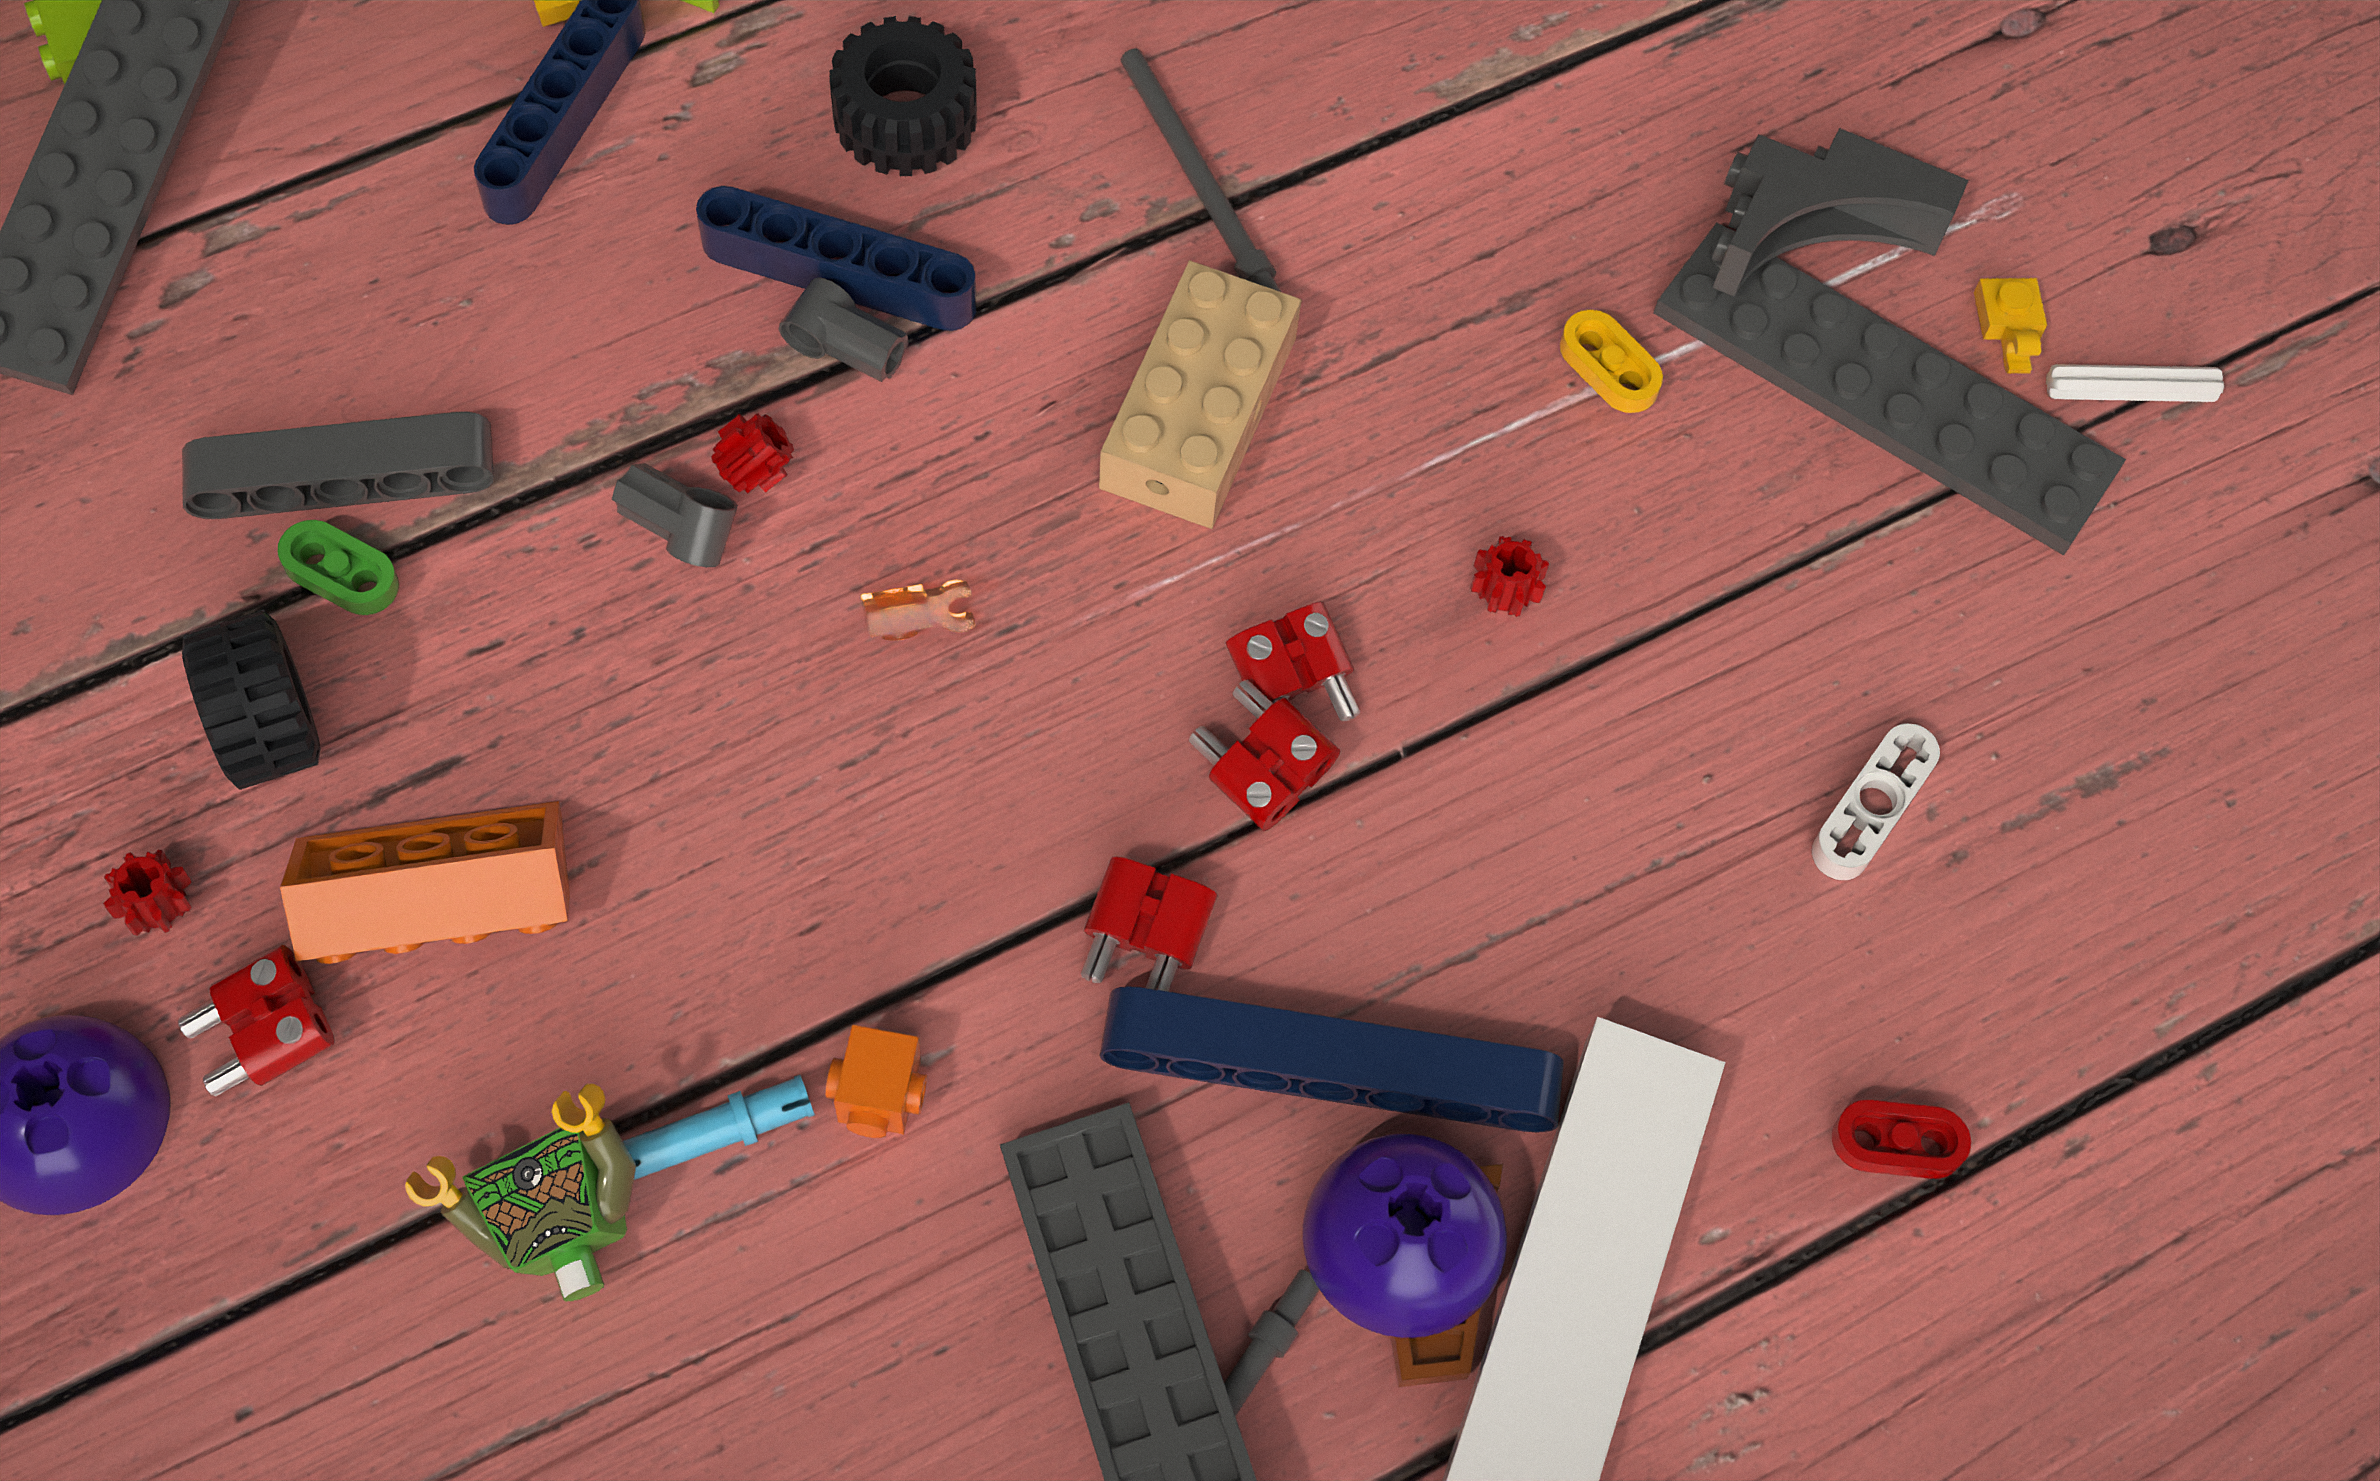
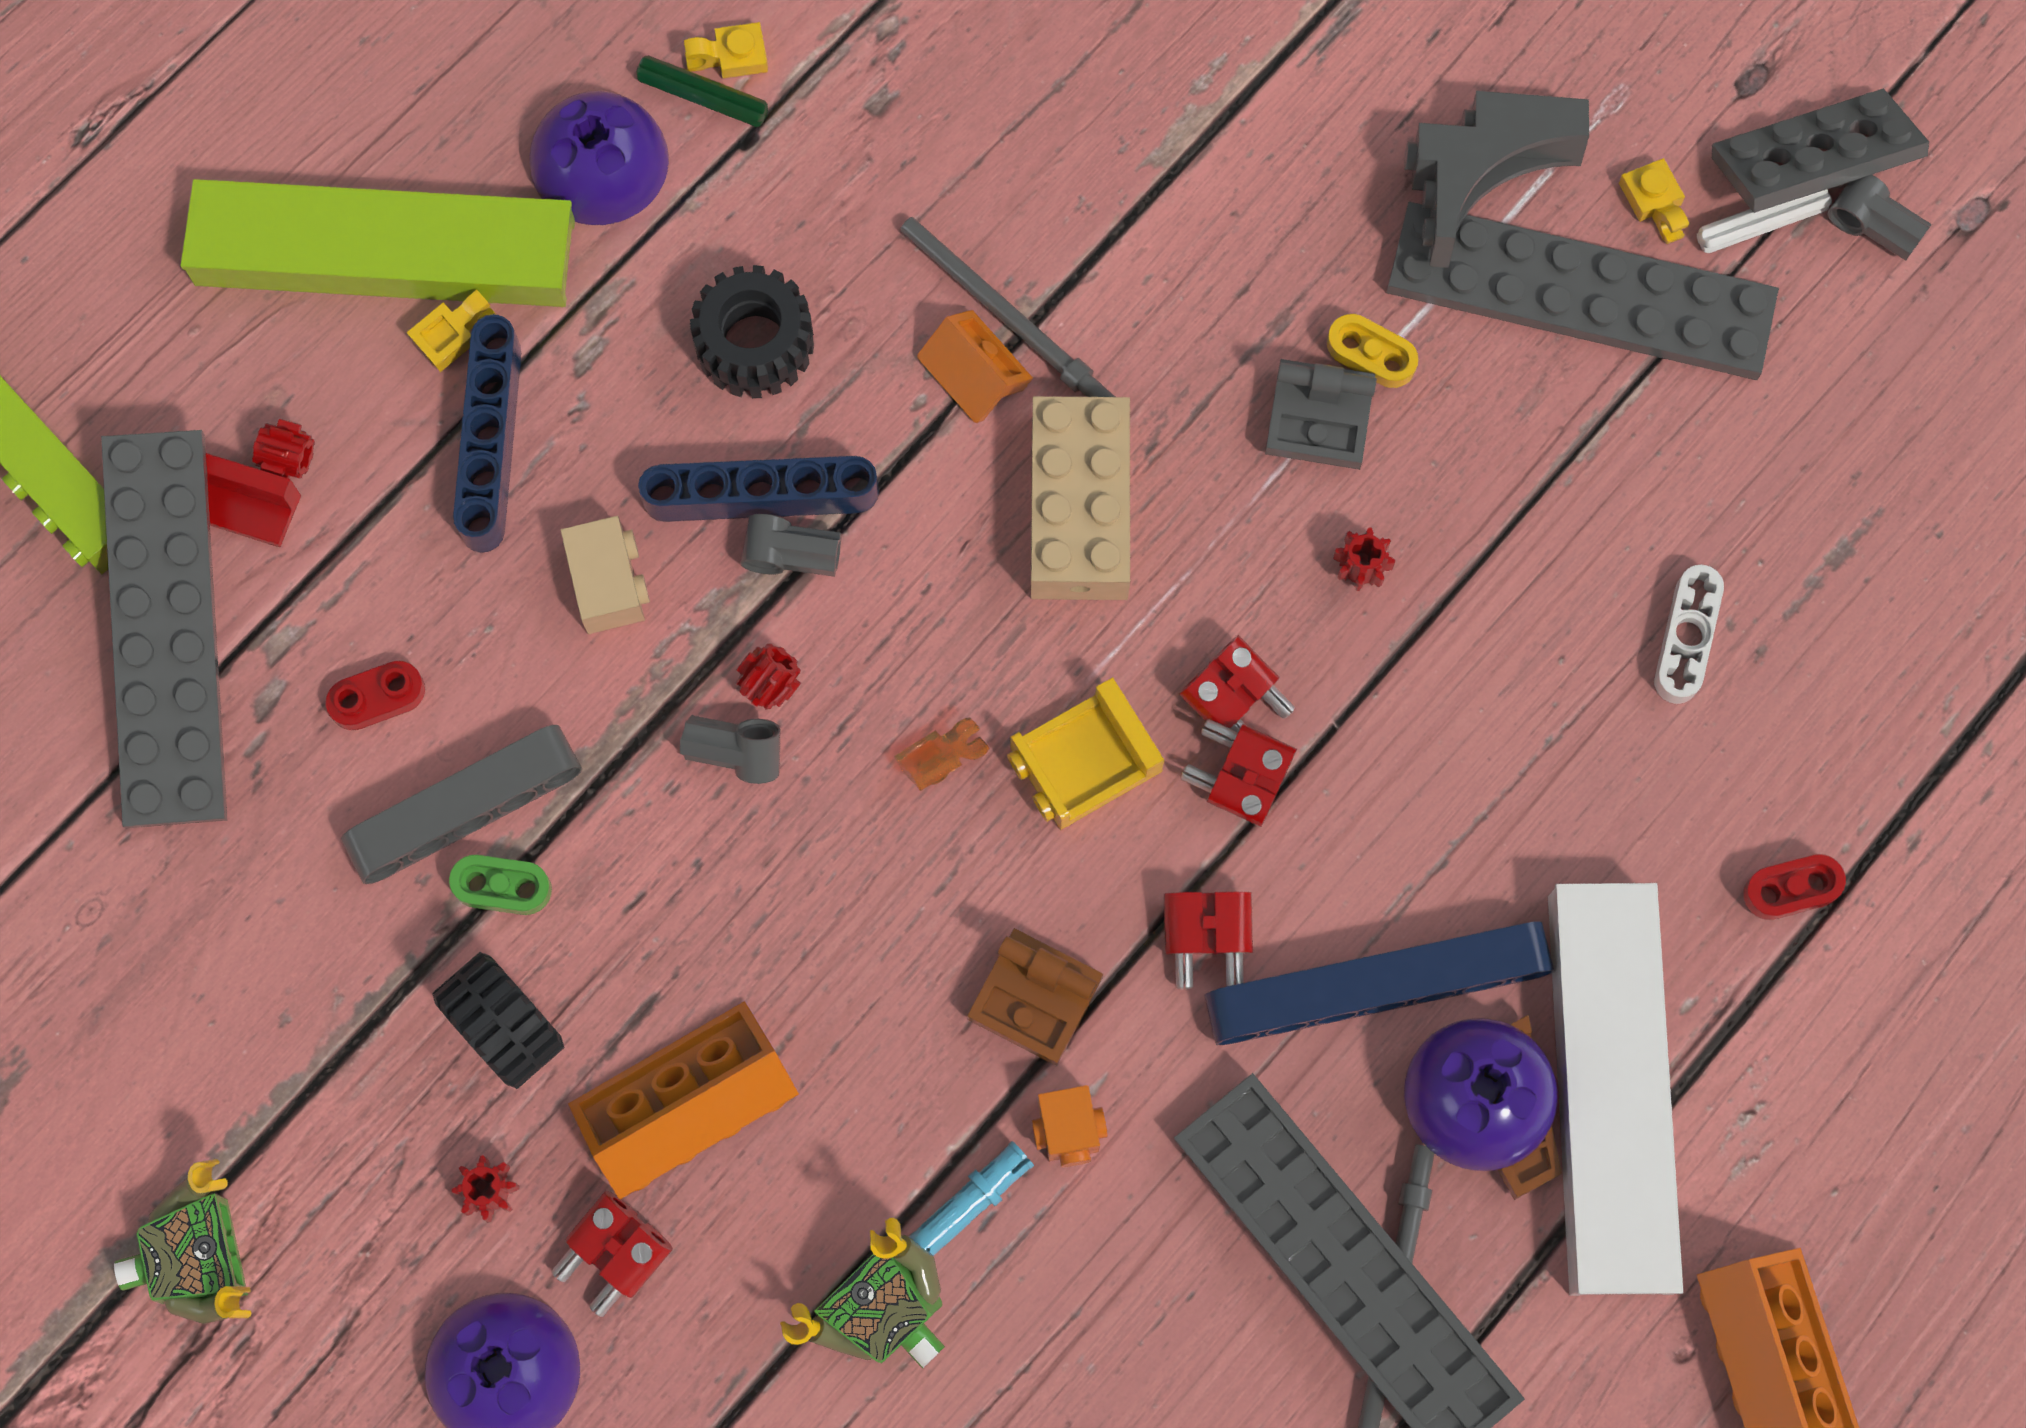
camera: 15 degrees left, 10 degrees up
(266, 76) = (250, 500): none -> red panel
(300, 322) = (374, 697): none -> red plate
(328, 38) = (283, 449): none -> red gear
(619, 284) = (603, 574): none -> tan brick
(904, 918) = (1035, 996): none -> dark orange plate
(1085, 676) = (1086, 756): none -> yellow panel
(1139, 217) = (972, 364): none -> orange panel
(1522, 403) = (1320, 414): none -> dark grey plate
(2227, 328) = (1838, 128): none -> dark grey plate
(2267, 413) = (1868, 210): none -> dark grey piece

